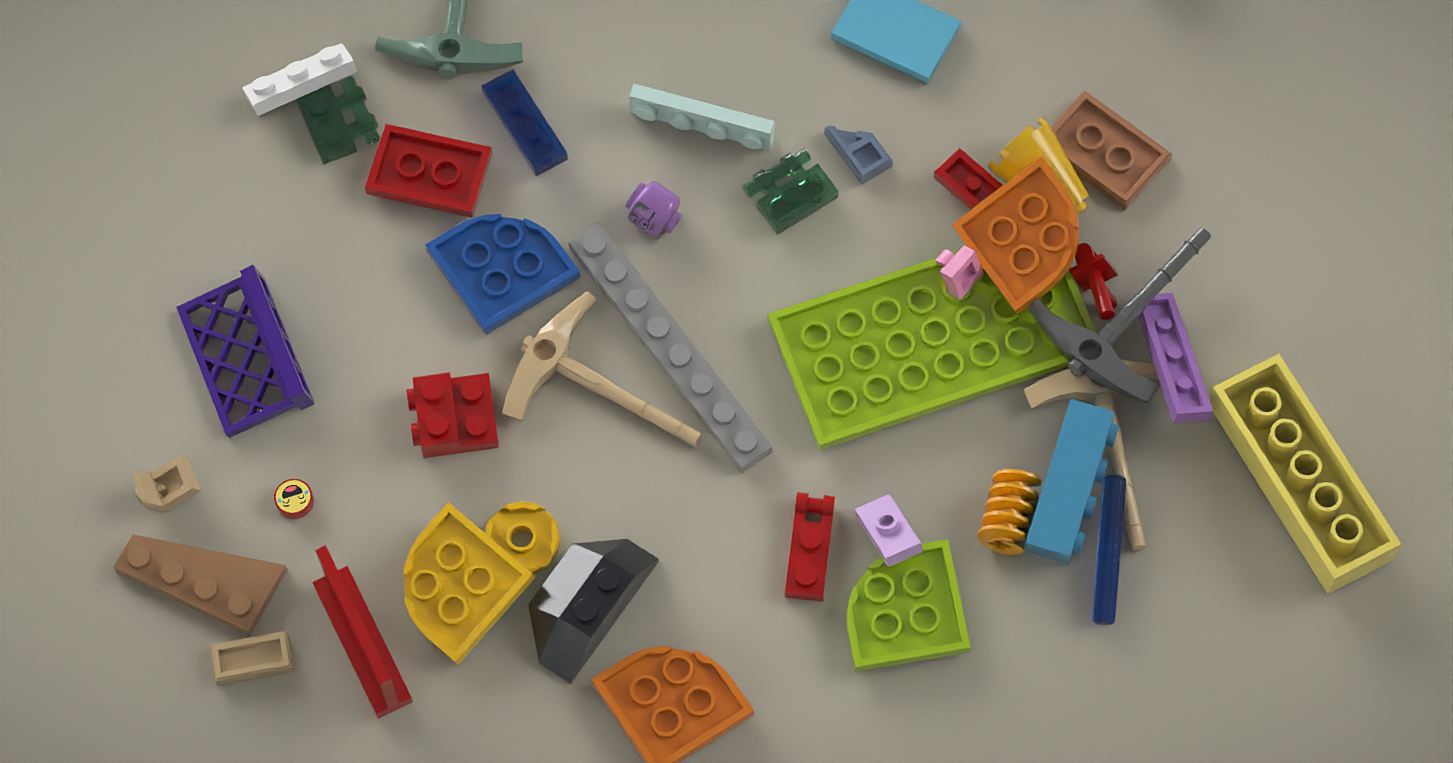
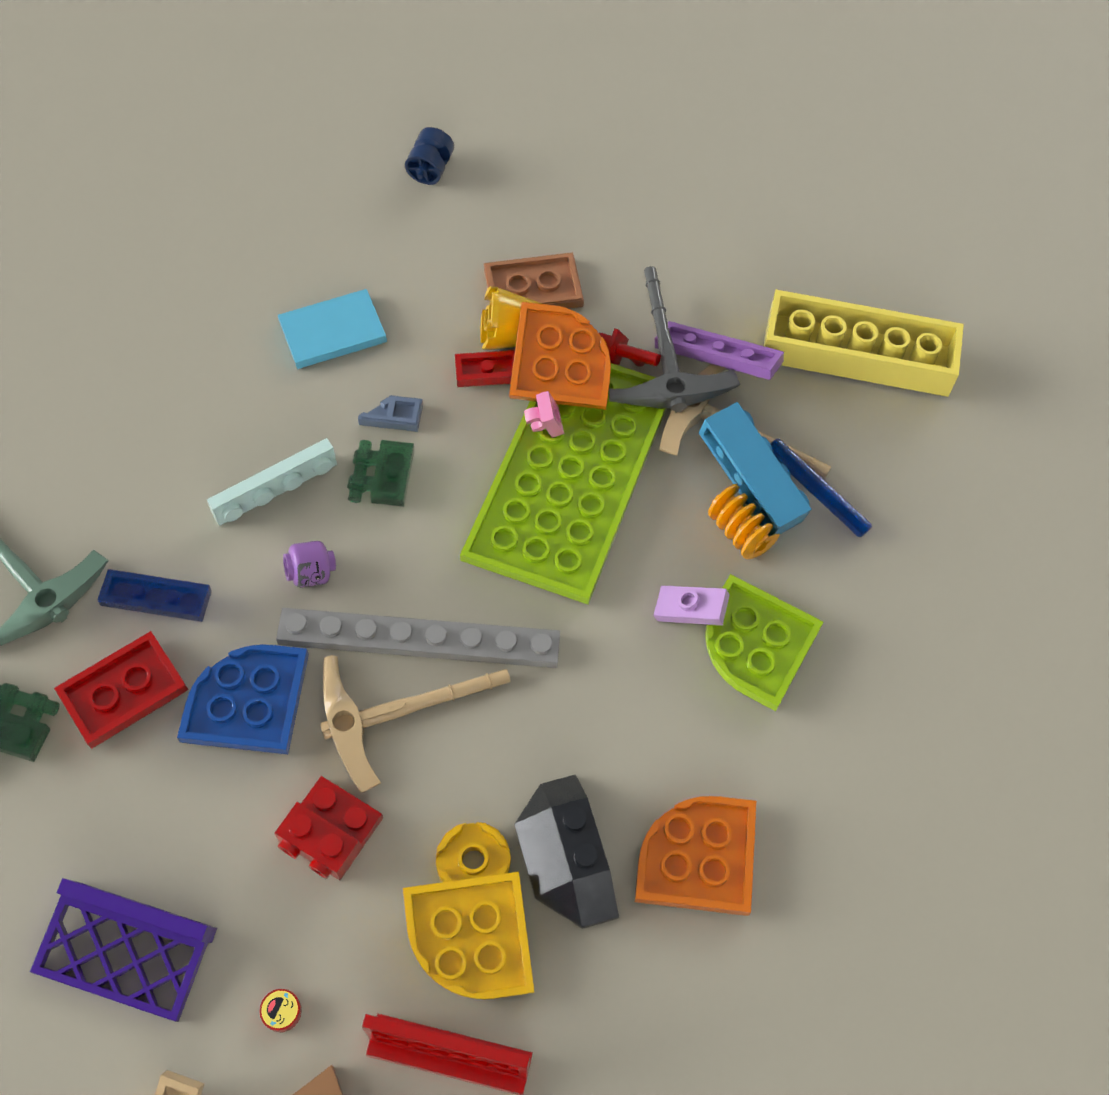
camera: 55 degrees left, 5 degrees down
(809, 548) = (656, 667): red plate -> none

